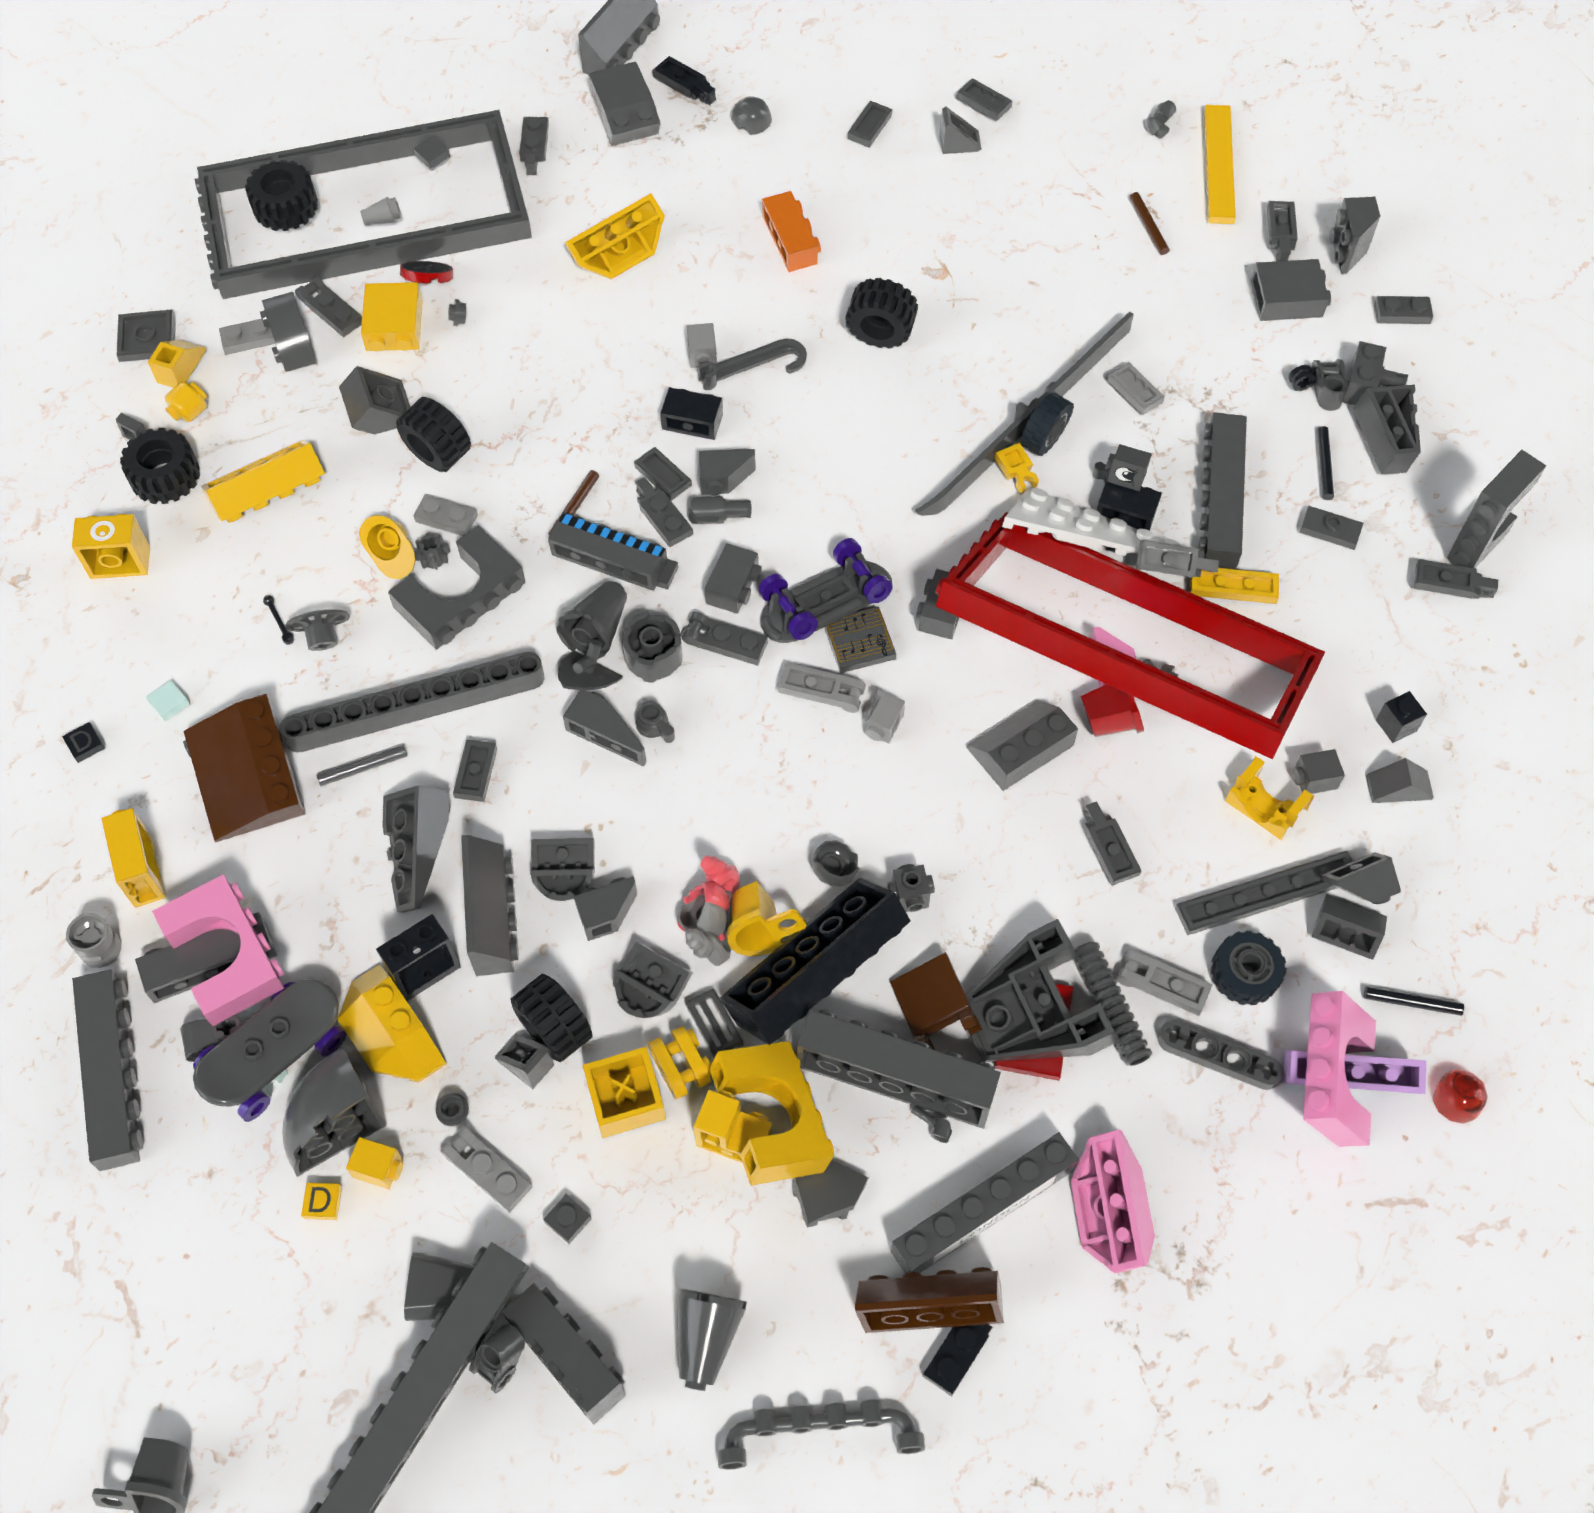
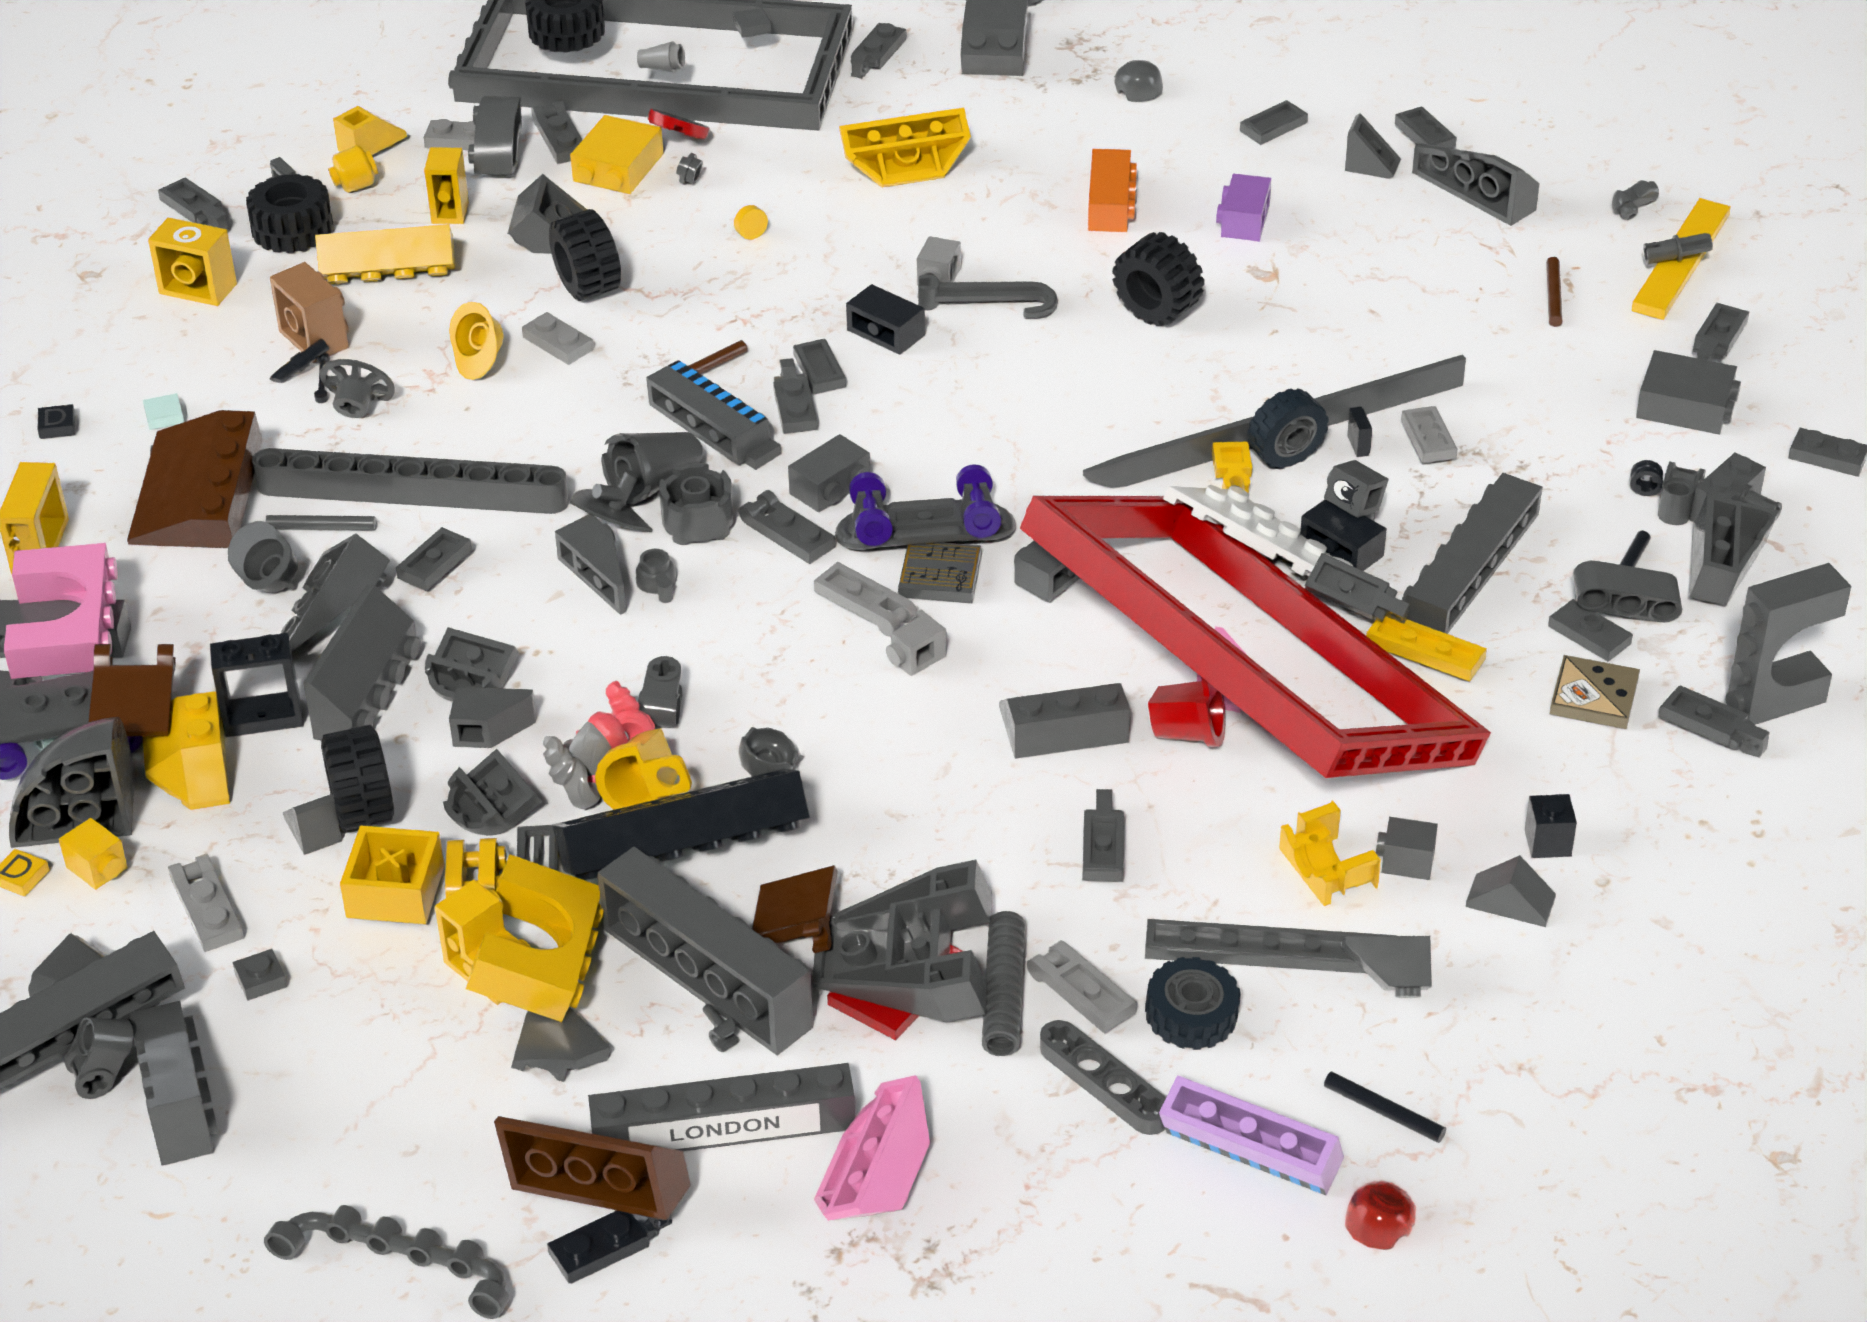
camera: 25 degrees right, 20 degrees down
(71, 480) = (194, 203): none -> dark grey hinge
(142, 333) = (347, 96): dark grey plate -> none
(239, 565) = (309, 309): none -> medium nougat brick
(254, 612) = (300, 361): none -> black piece
(278, 397) = (446, 185): none -> yellow brick
(327, 1012) = (134, 692): none -> reddish brown flag
(342, 825) = (262, 557): none -> dark grey piece
(431, 551) = (518, 360): dark grey gear -> none
(441, 619) = (495, 421): dark grey arch -> none
(449, 1101) = (205, 837): dark grey plate -> none
(535, 351) = (750, 222): none -> yellow tile
(685, 80) = (1082, 33): black hinge -> none
(705, 1335) = (331, 1112): dark grey cone -> none
(716, 510) = (854, 409): dark grey arm -> none
(724, 469) = (888, 377): dark grey slope -> none
(725, 840) = (662, 692): none -> dark grey piece
(897, 216) = (1244, 207): none -> medium lavender brick
(912, 887) = (838, 802): dark grey brick -> none
(1052, 139) = (1479, 180): none -> dark grey wedge
(1089, 404) = (1359, 431): none -> black tile
(1220, 159) = (1677, 248): none -> dark grey axle
(1336, 1029) = (1186, 1128): bright pink arch -> none
(1346, 489) = (1627, 591): none -> dark grey beam
(1350, 926) = (1348, 1006): dark grey brick -> none
(1354, 230) = (1802, 353): dark grey slope -> none
(1362, 582) = (1594, 691): none -> tile

